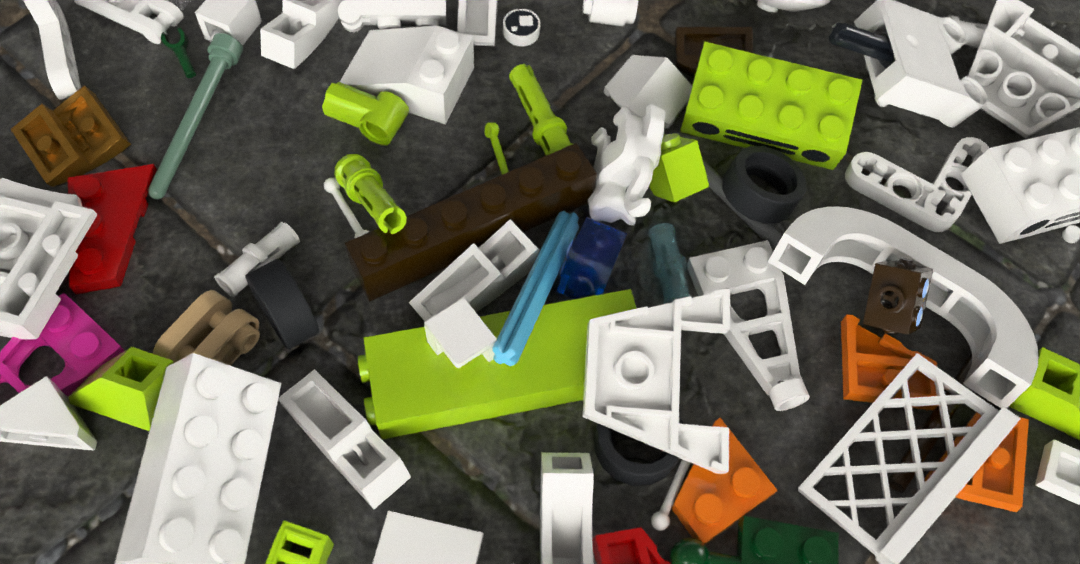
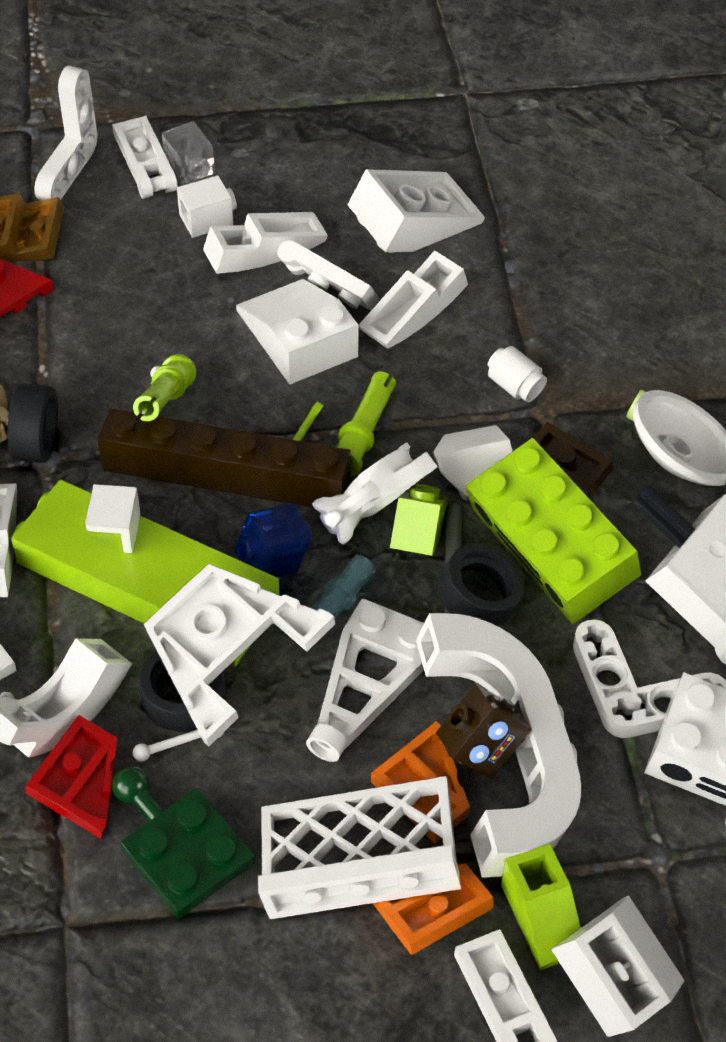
camera: 45 degrees right, 10 degrees down
(180, 52) = (149, 210): dark green hand -> none
(223, 53) = (175, 231): sand green piece -> none
(256, 255) = (66, 386): white pin -> none
(375, 116) = (235, 340): lime piece -> none
(480, 273) = (196, 503): white slope -> none
(521, 27) = (426, 347): tile -> none
(535, 290) = (192, 530): medium azure axle -> none
(715, 501) = (215, 770): orange wing -> none

